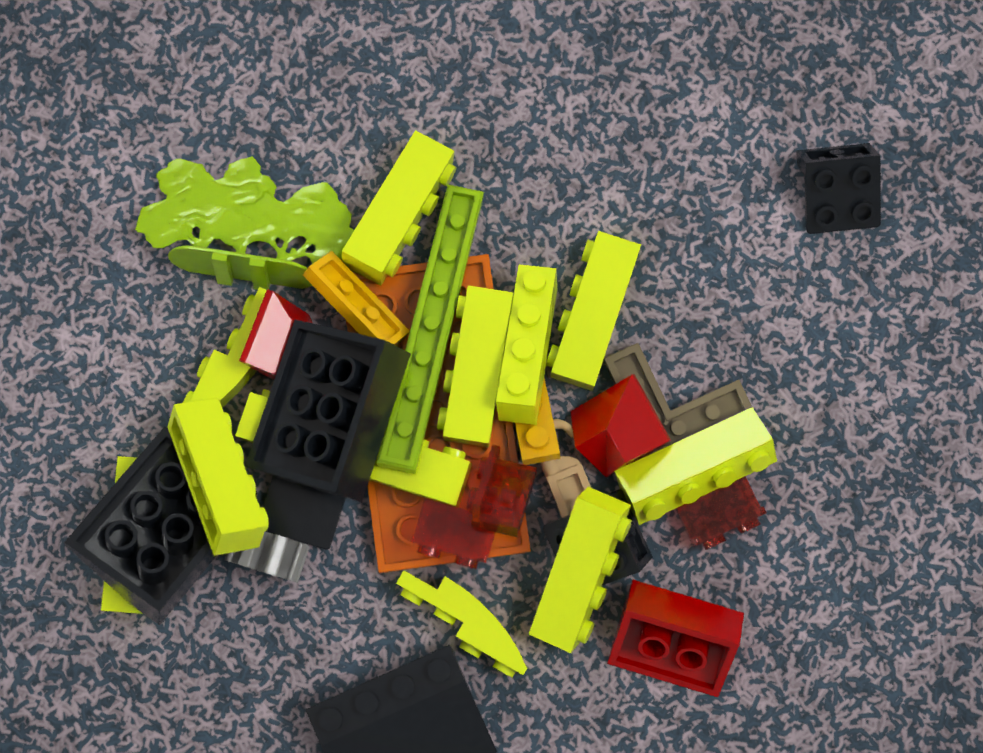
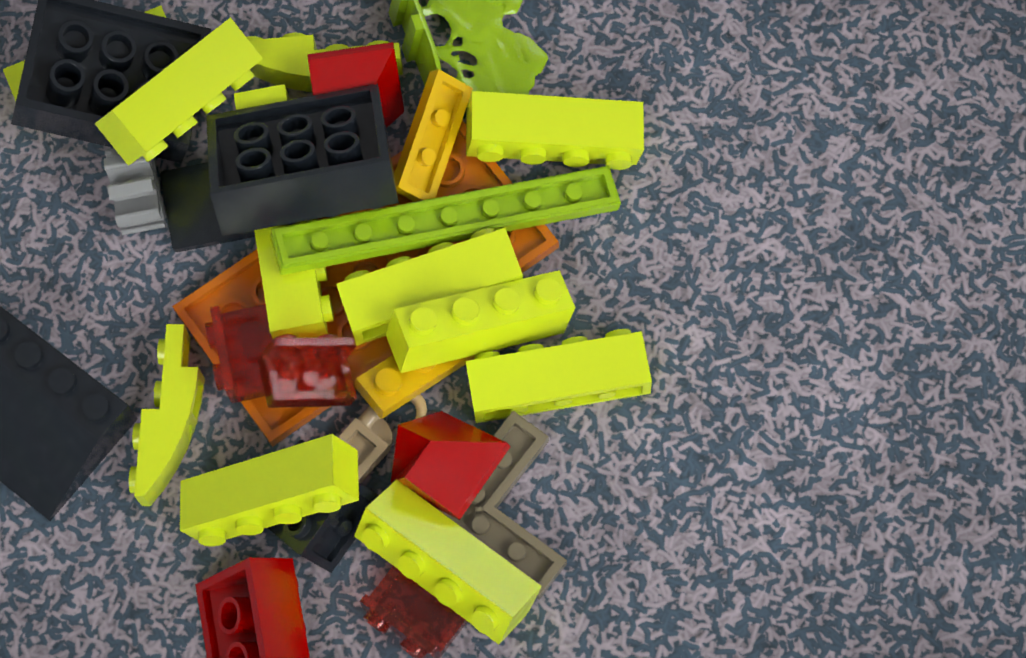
camera: 65 degrees right, 10 degrees down
(841, 187) = (839, 561): black bracket -> none

